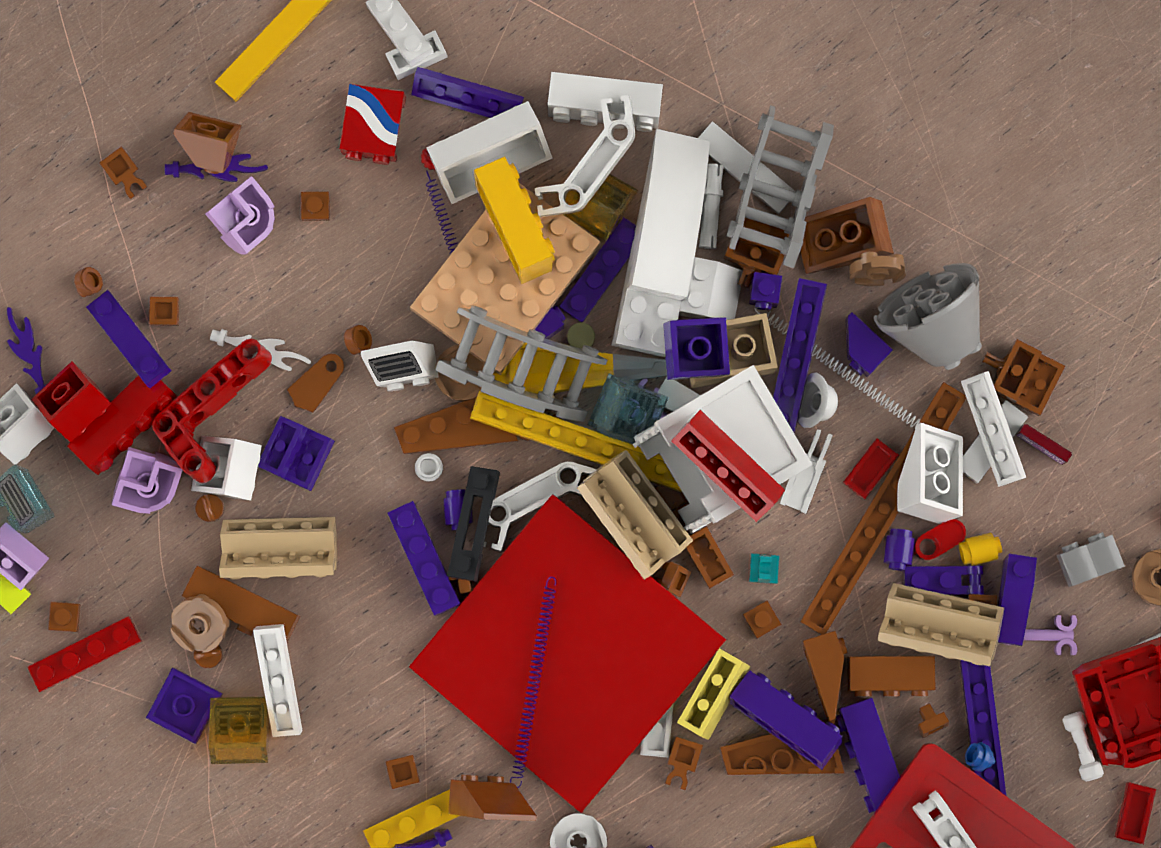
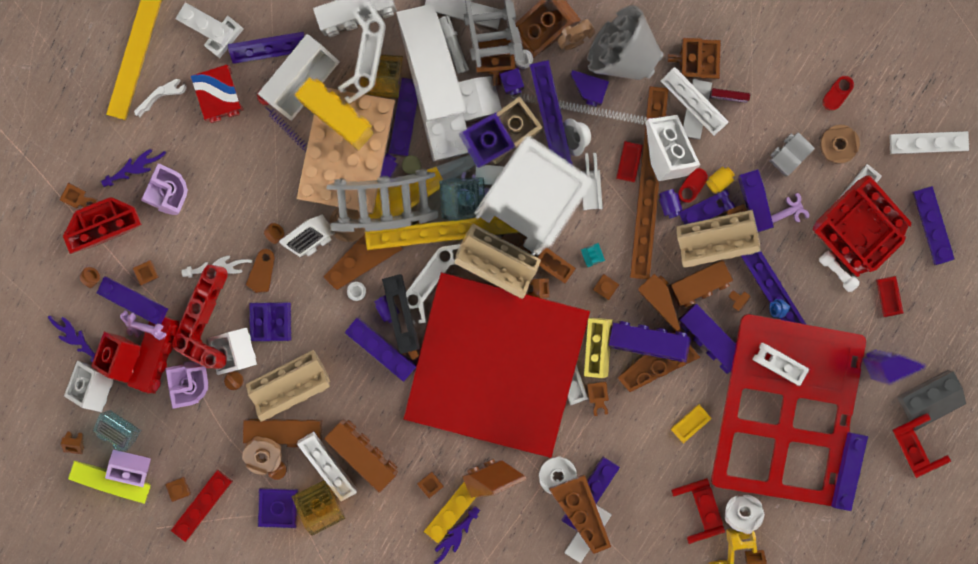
camera: 30 degrees left, 5 degrees up
(117, 377) = (138, 328): none -> lavender bar
(136, 219) = (100, 224): none -> red wedge
(208, 141) = (120, 153): dark orange slope -> none
(310, 88) = (167, 89): none -> white arm
(315, 206) = (207, 162): dark orange plate -> none
(330, 686) = (361, 455): none -> dark orange brick
(534, 677) = (484, 390): dark purple piece -> none
(728, 465) = (541, 207): red brick -> none
(799, 271) = (527, 60): none -> white plate

